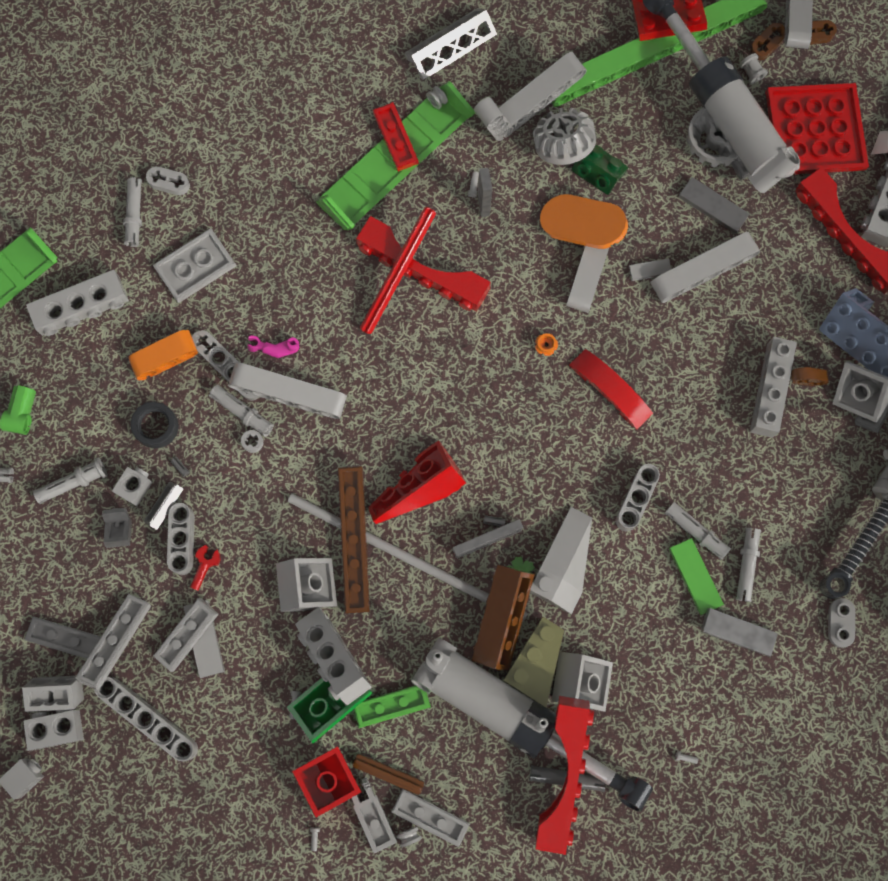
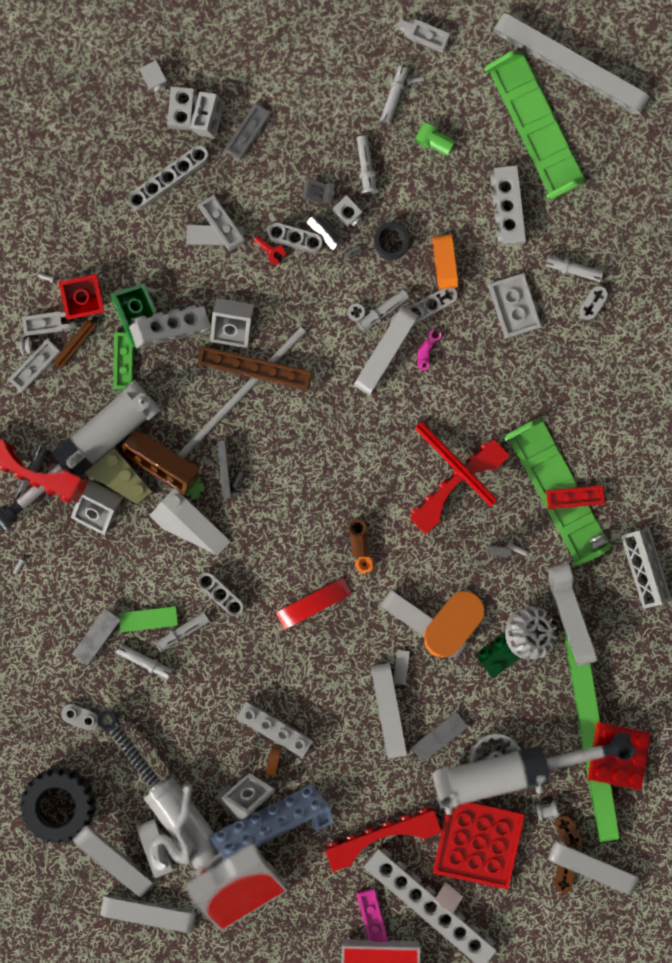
camera: 105 degrees right, 10 degrees up
(113, 642) = (232, 168): light grey tile -> none
(427, 482) = (282, 438): red wedge -> none
(519, 357) = (358, 540): none -> reddish brown piece

